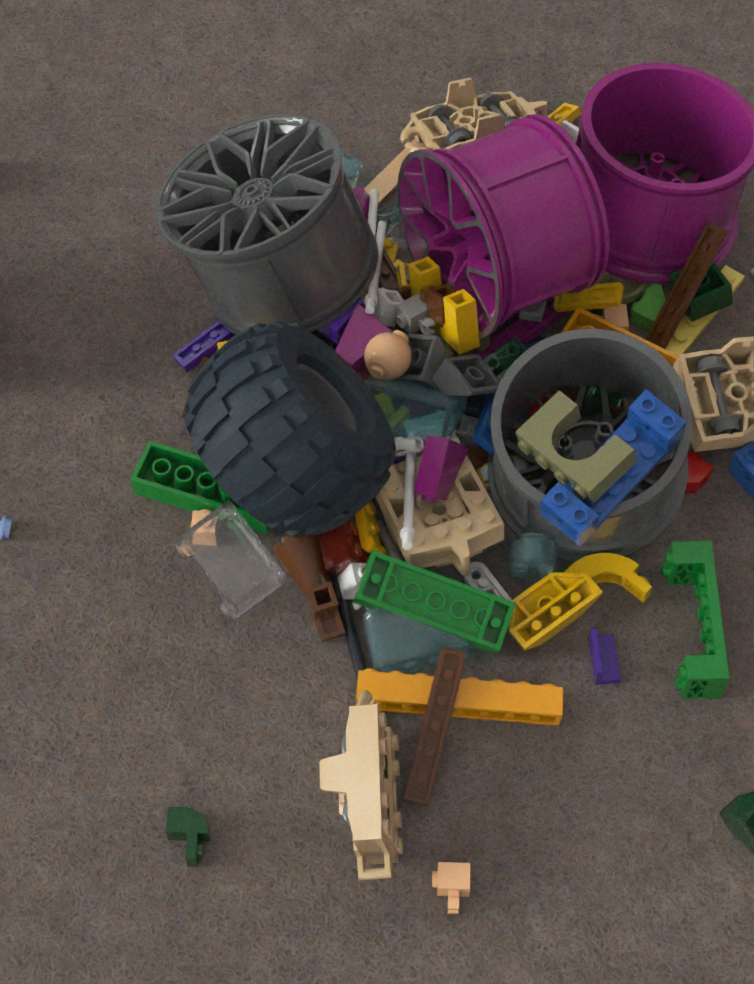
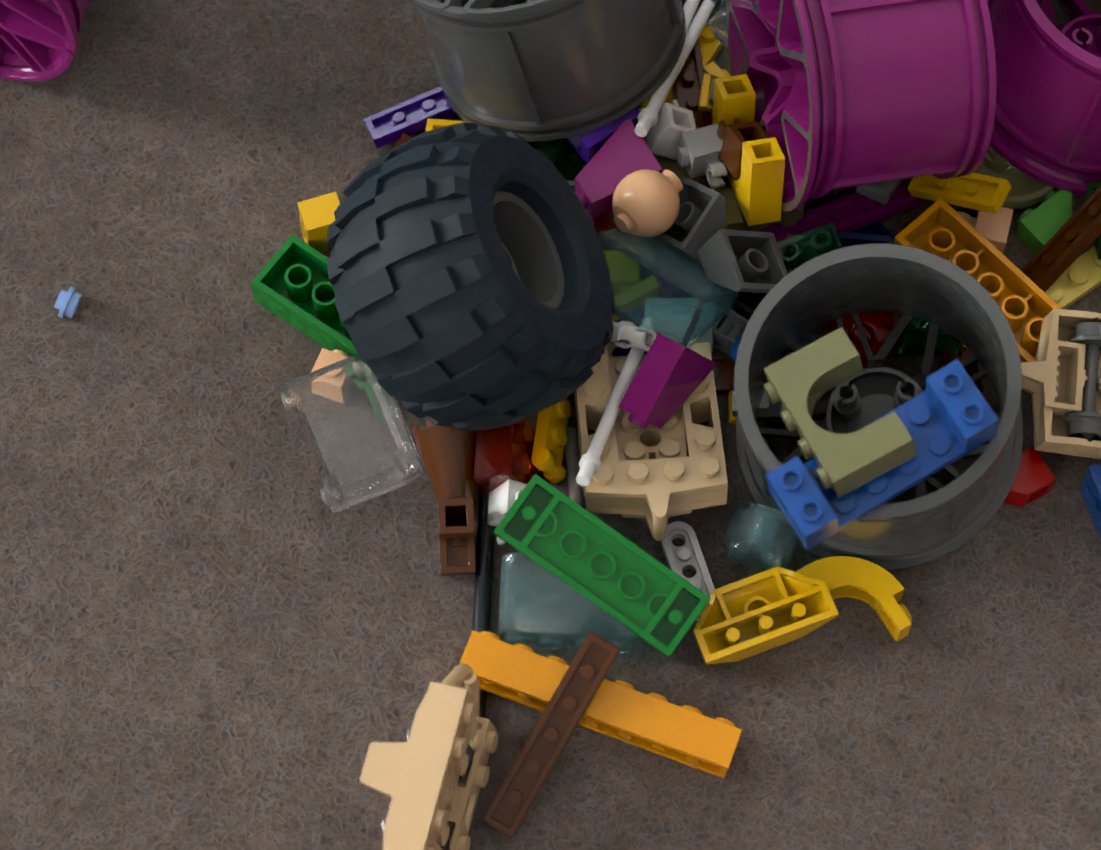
camera: 15 degrees right, 5 degrees up
(169, 427) = (315, 218): none -> yellow brick
(188, 826) = (191, 777): dark green brick -> none
(603, 658) = (815, 704): dark purple panel -> none
(706, 673) = (976, 608): green plate -> none

